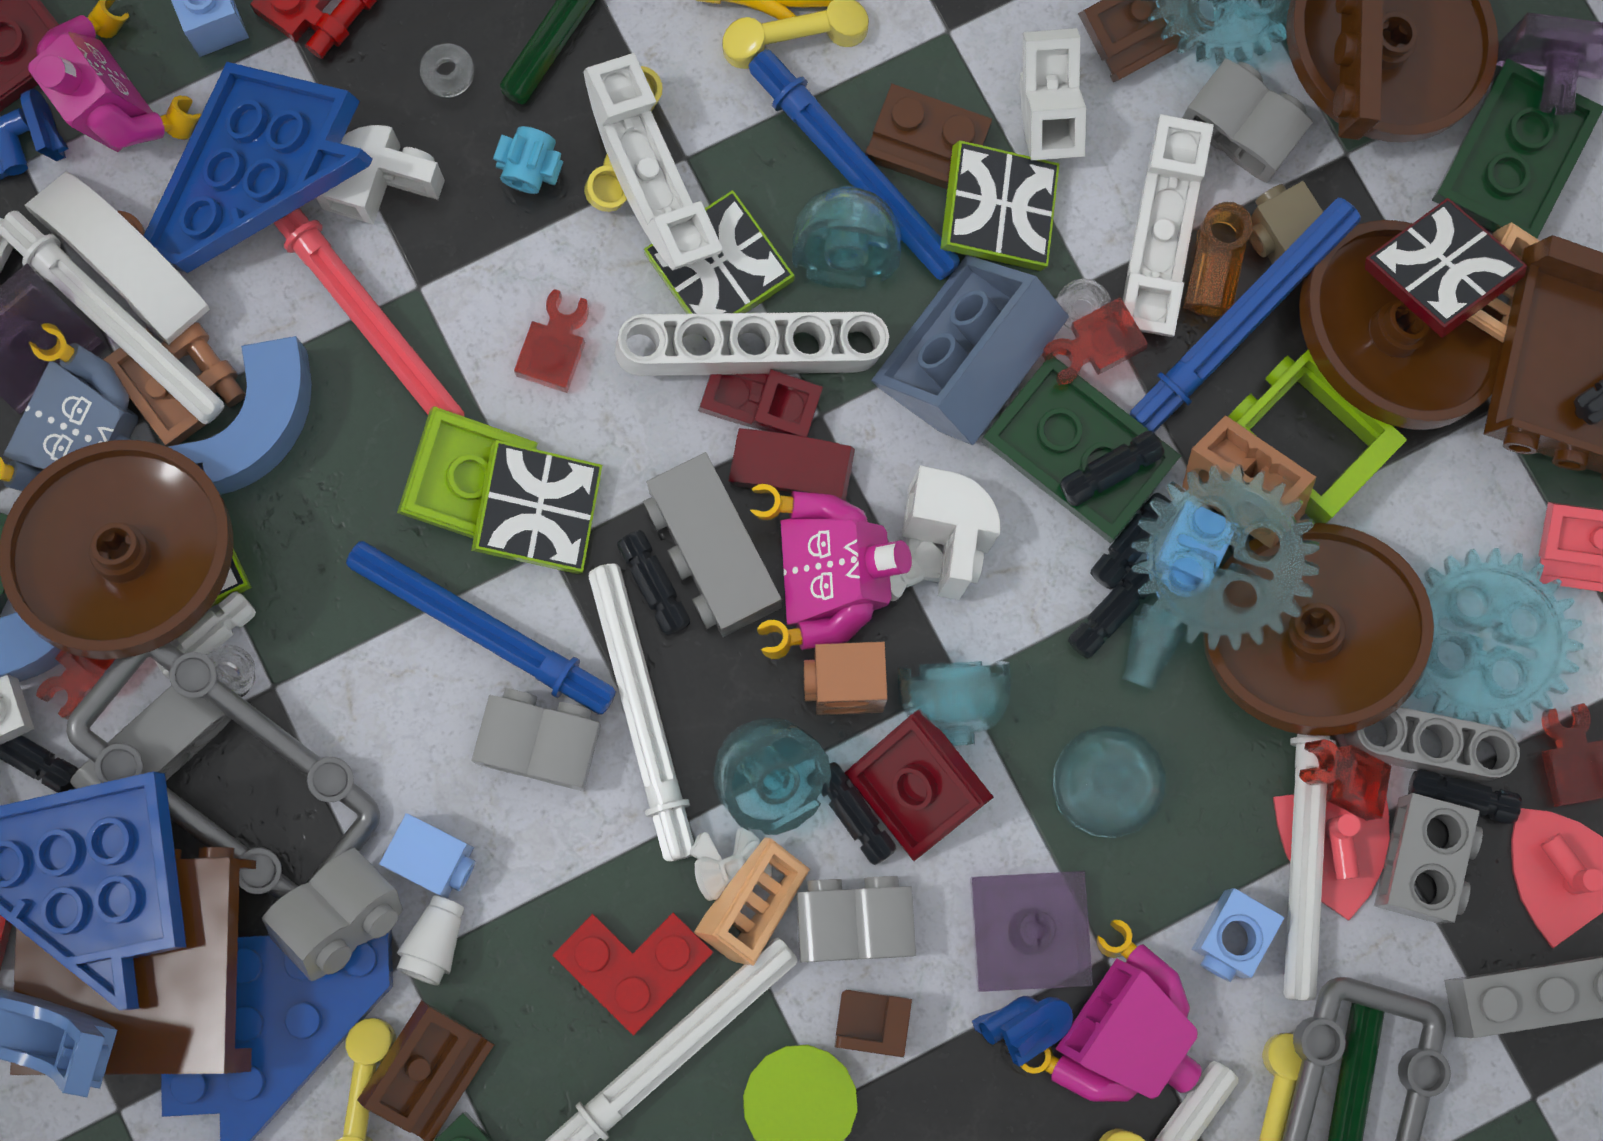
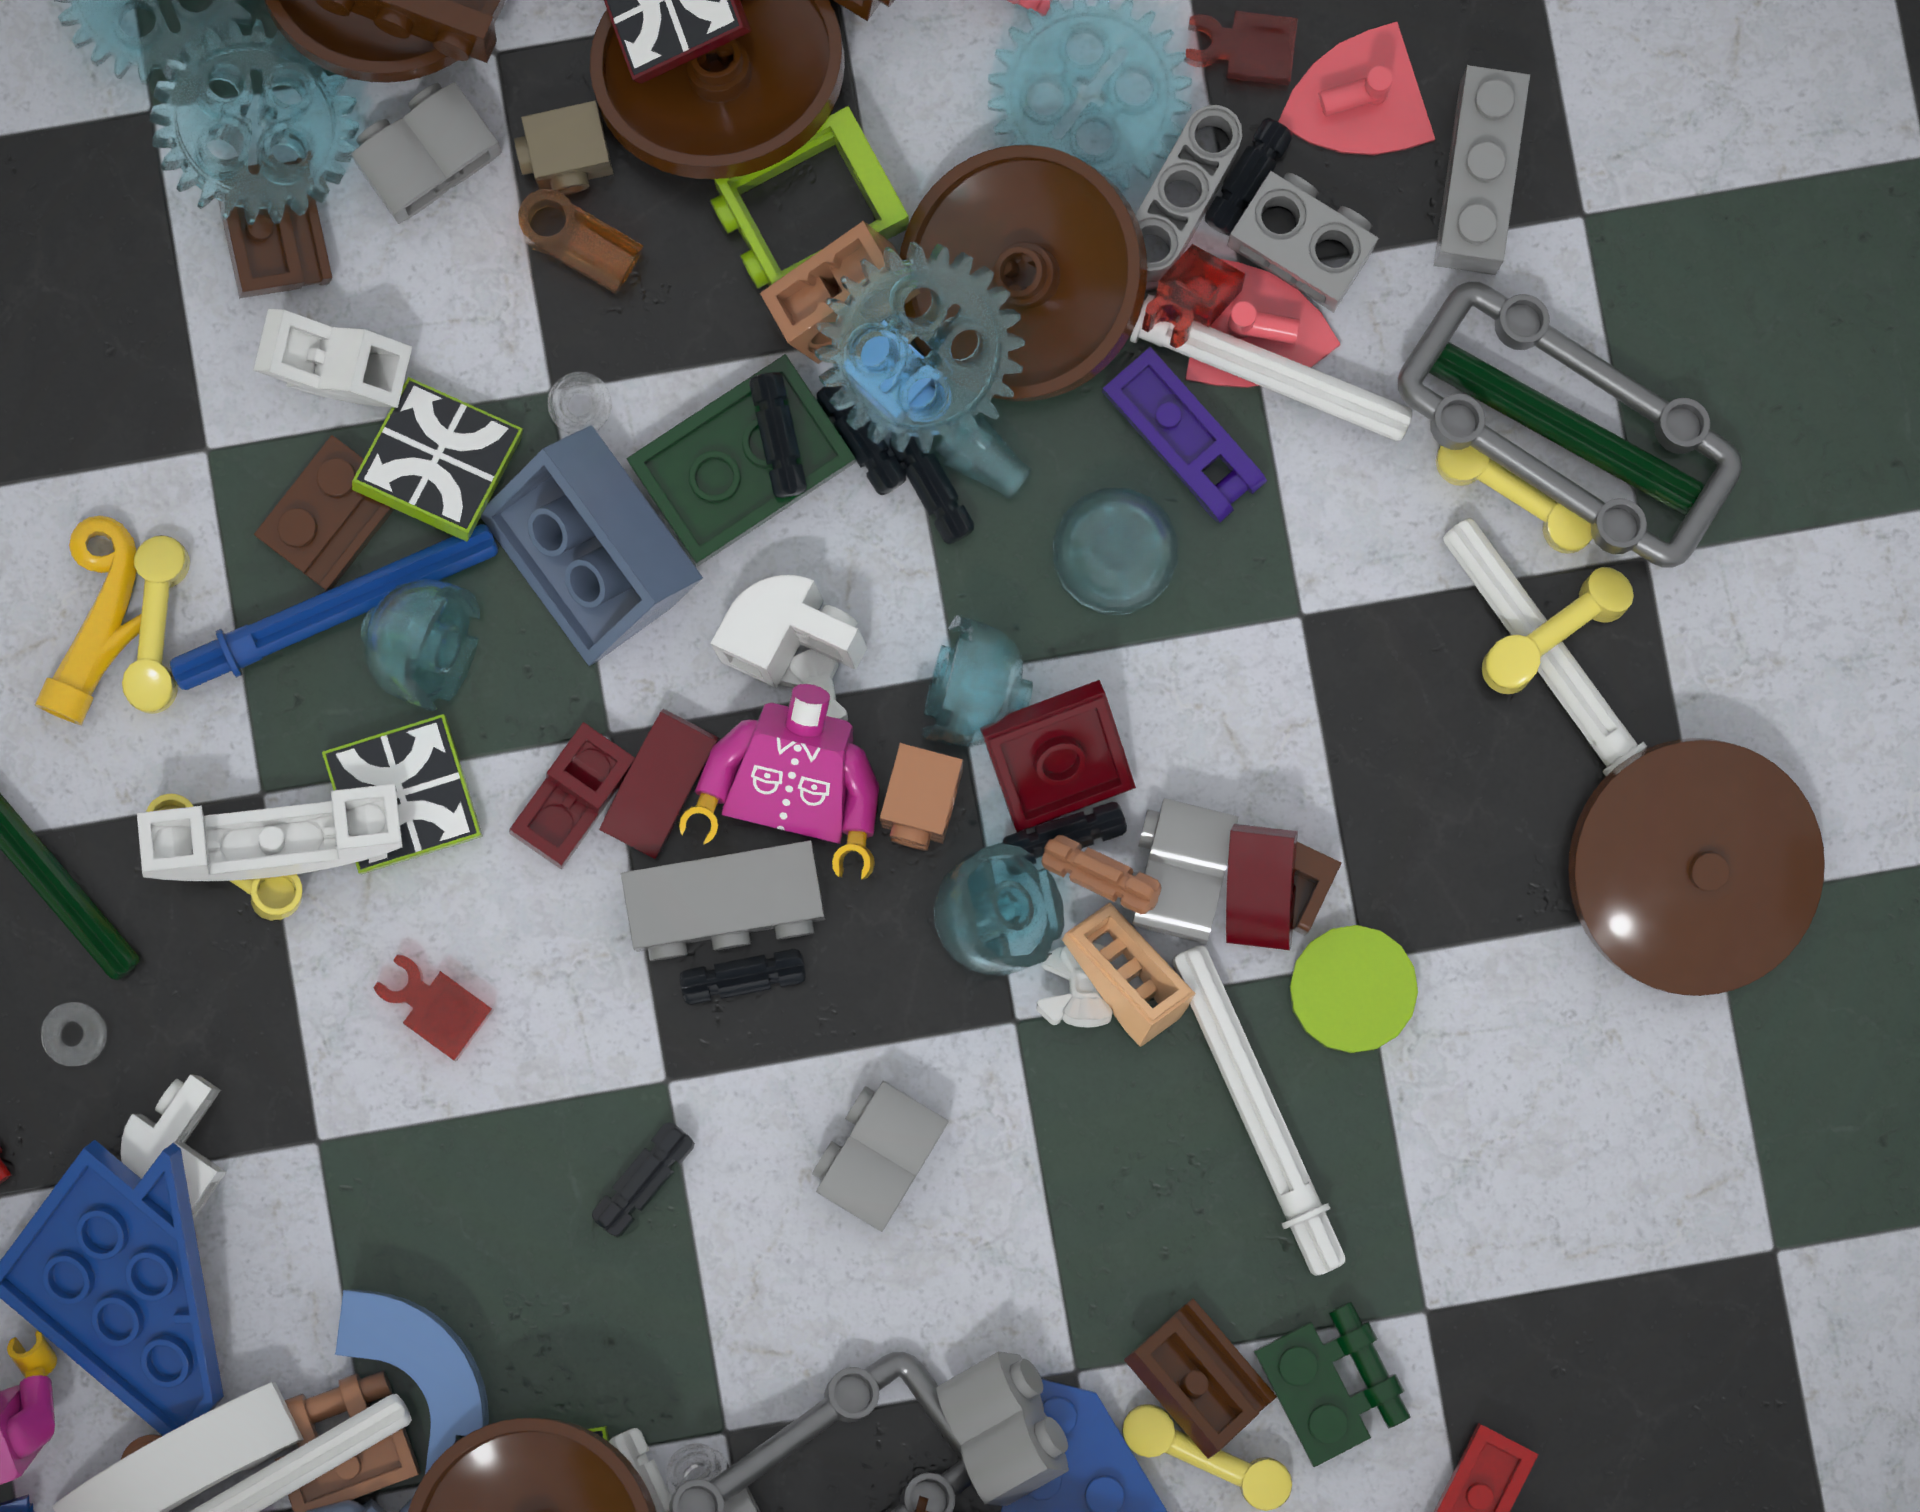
camera: 70 degrees left, 5 degrees up
(315, 251) = (248, 1242): coral axle -> none
(429, 857) = (971, 1309): light blue brick -> none
(432, 942) = (1063, 1333): white cone -> none
(451, 471) = (561, 1146): lime tile -> none
(456, 552) = (643, 1179): none -> black axle
(528, 160) = (214, 972): medium azure gear -> none
(537, 507) = (619, 1079): tile -> none
(545, 665) = (799, 1121): blue axle -> none
(628, 982) = (1173, 1126): red plate -> none
(642, 713) = (882, 1032): white axle -> none
(774, 329) = (511, 754): white beam -> none
(828, 852) = (1101, 874): none -> nougat axle
(862, 993) = (1261, 886): none -> dark red slope
(1026, 1026) = (1347, 723): blue piece -> none
(1031, 931) = (1248, 686): clear purple tile -> none
(1102, 338) = (629, 396): clear red plate -> none
(1129, 1031) = (1387, 618): dark pink torso -> none
(1166, 223) = (520, 284): white slope -> none
(1227, 807) = (1182, 433): none -> dark purple plate
(1245, 315) = (654, 233): blue axle -> none
(1256, 919) = (1314, 442): light blue brick -> none

